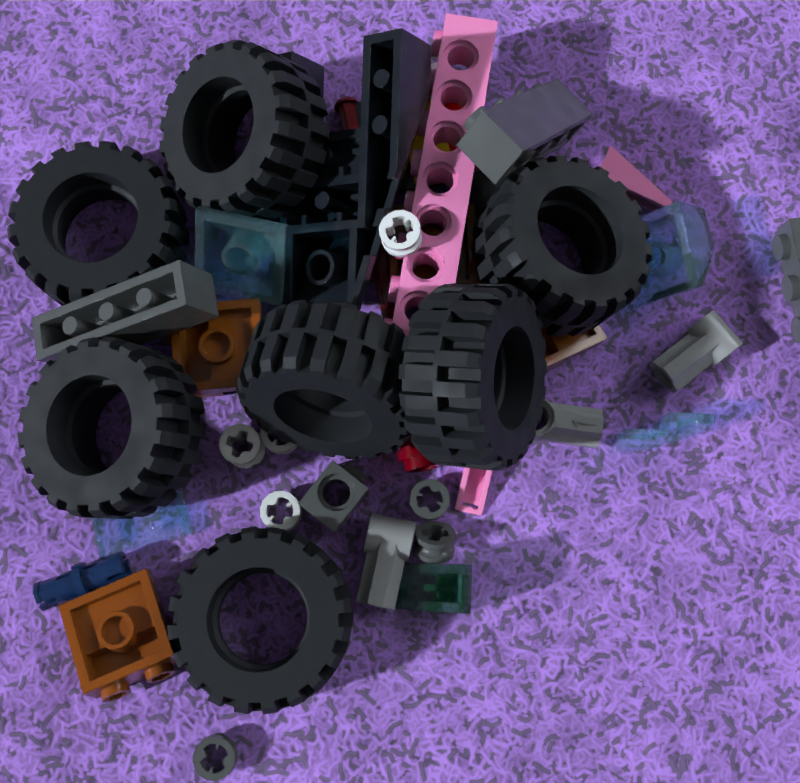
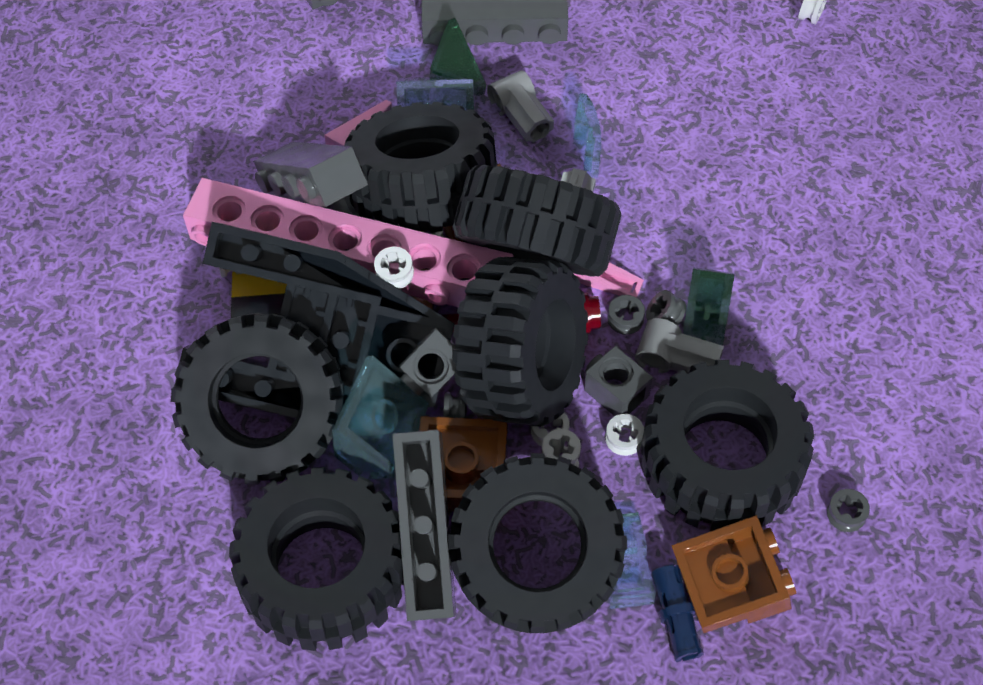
camera: 80 degrees left, 20 degrees down
(302, 282) = (434, 343): none -> dark grey brick
(737, 266) = (455, 58): none -> clear green slope

